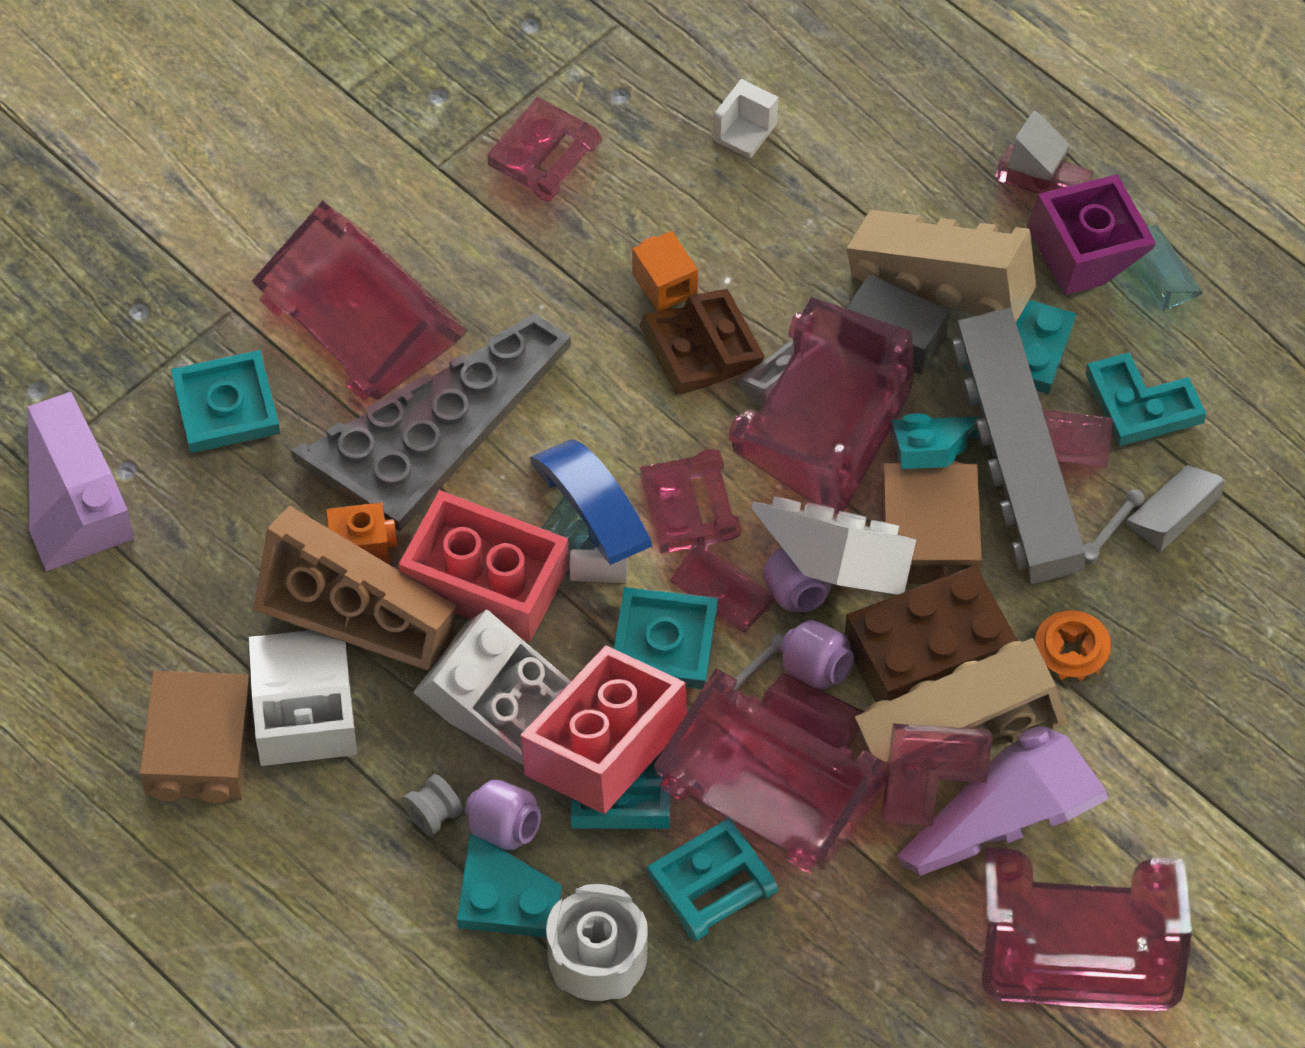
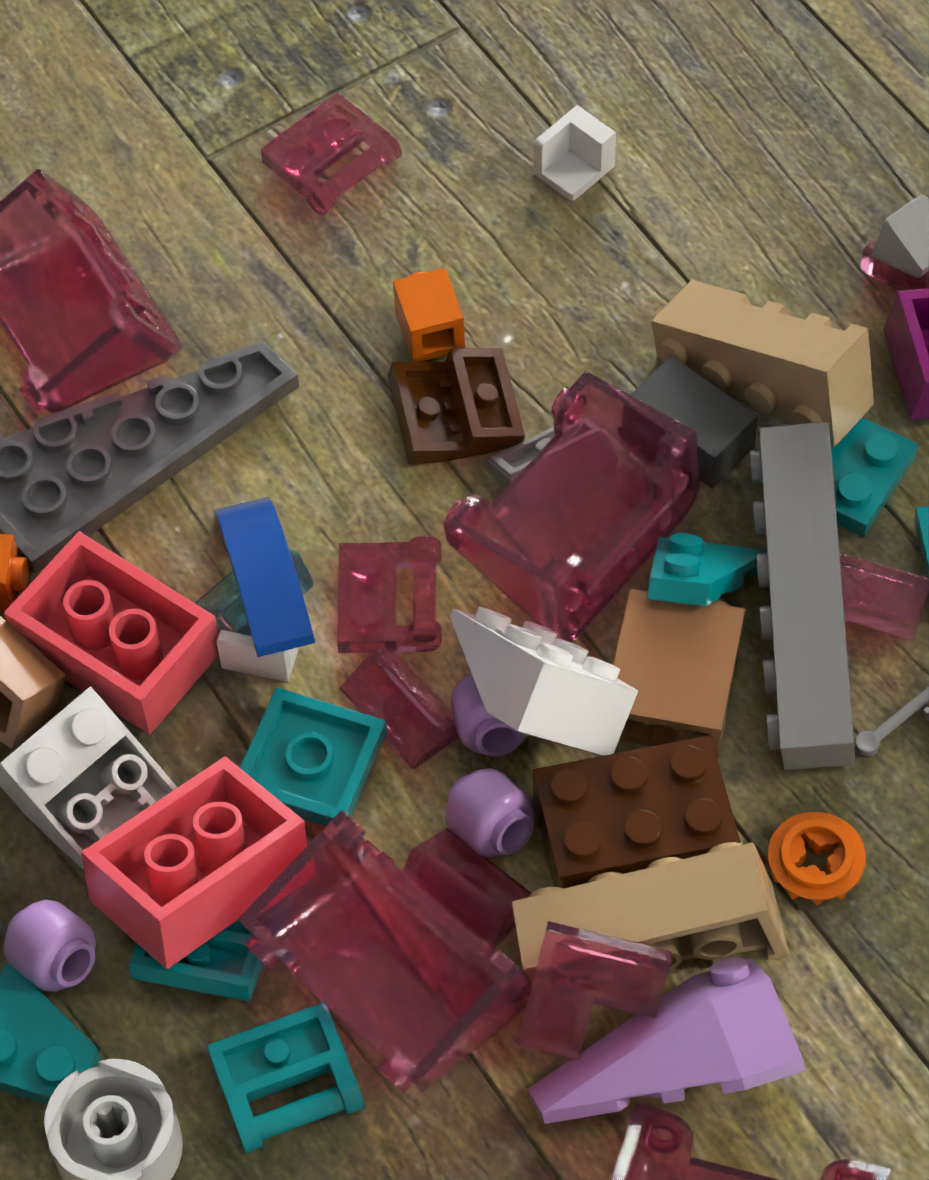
camera: 15 degrees right, 0 degrees up
(775, 646) = (411, 814): light grey hinge -> none

